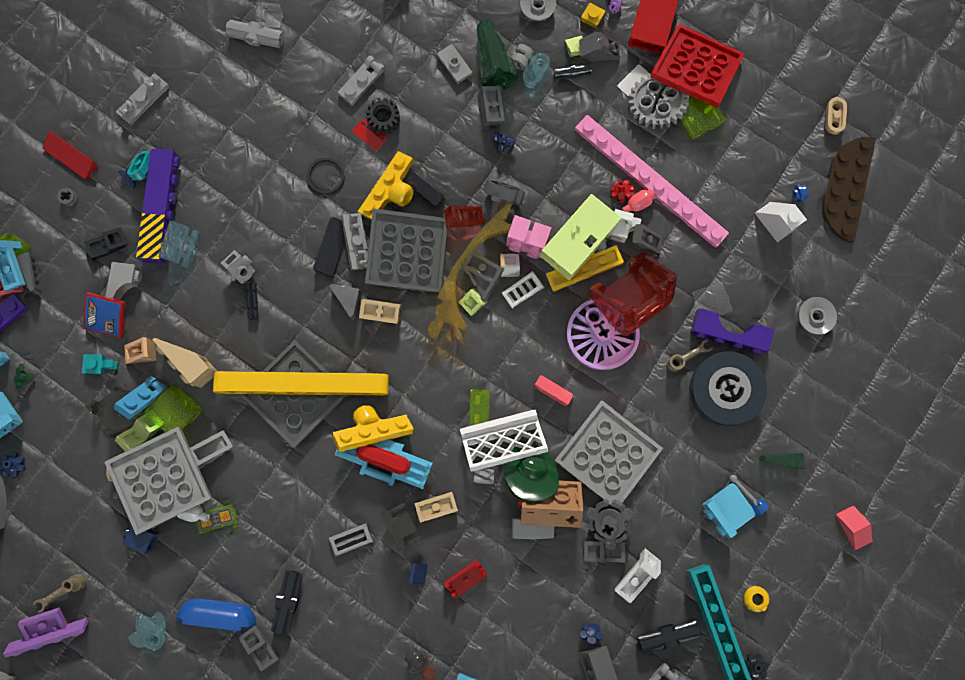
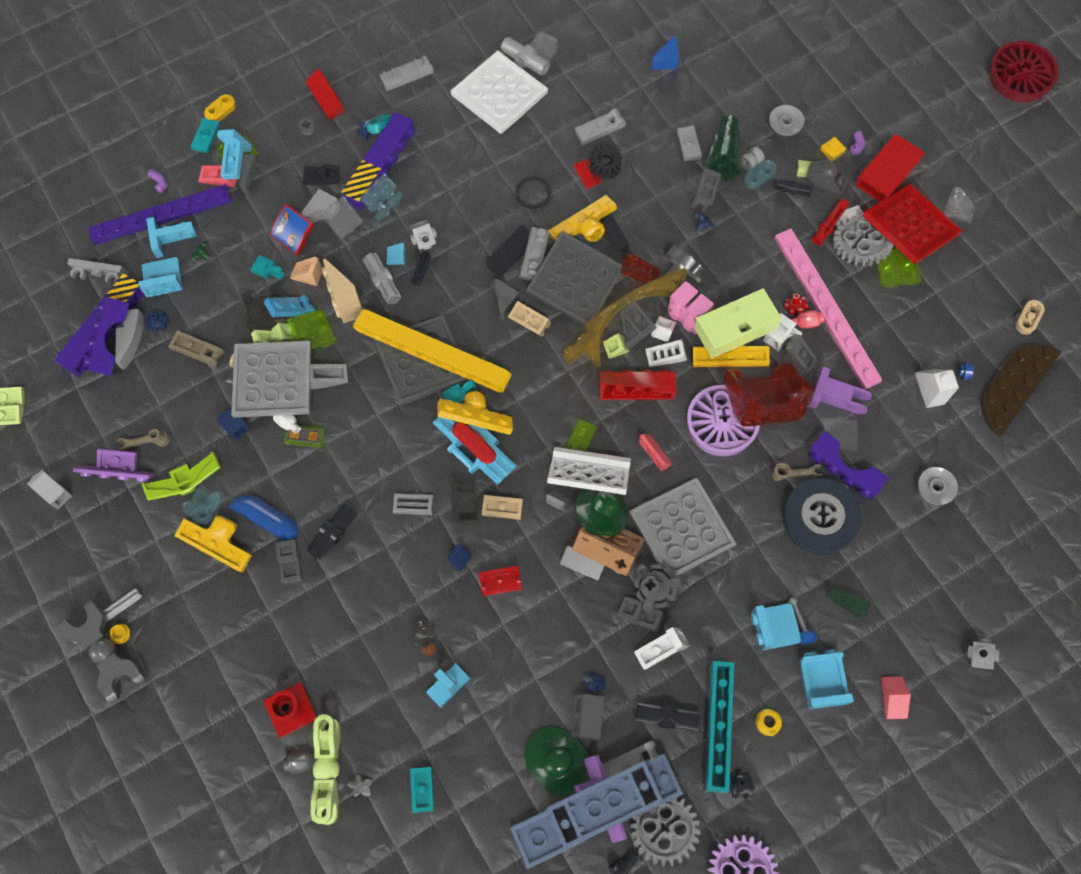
camera: 30 degrees right, 10 degrees down
(66, 477) = (195, 348): none -> dark tan plate
(118, 615) = (182, 479): none -> lime plate
(148, 282) = (341, 218): none -> clear piece
(179, 661) = (215, 541): none -> yellow plate
(217, 328) = (381, 278): none -> light grey piece
(220, 296) = (396, 254): none -> medium azure slope
(245, 82) = (499, 92): none -> white plate
(343, 414) = (458, 393): none -> teal plate
(509, 334) = (637, 385): none -> red wedge
(619, 100) = (826, 227): none -> red pin
(694, 263) = (838, 394): none -> medium lavender piece
(732, 29) = (960, 206): none -> clear slope
(790, 540) = (824, 679): none -> medium azure panel
(919, 463) = (977, 660): none -> light grey brick

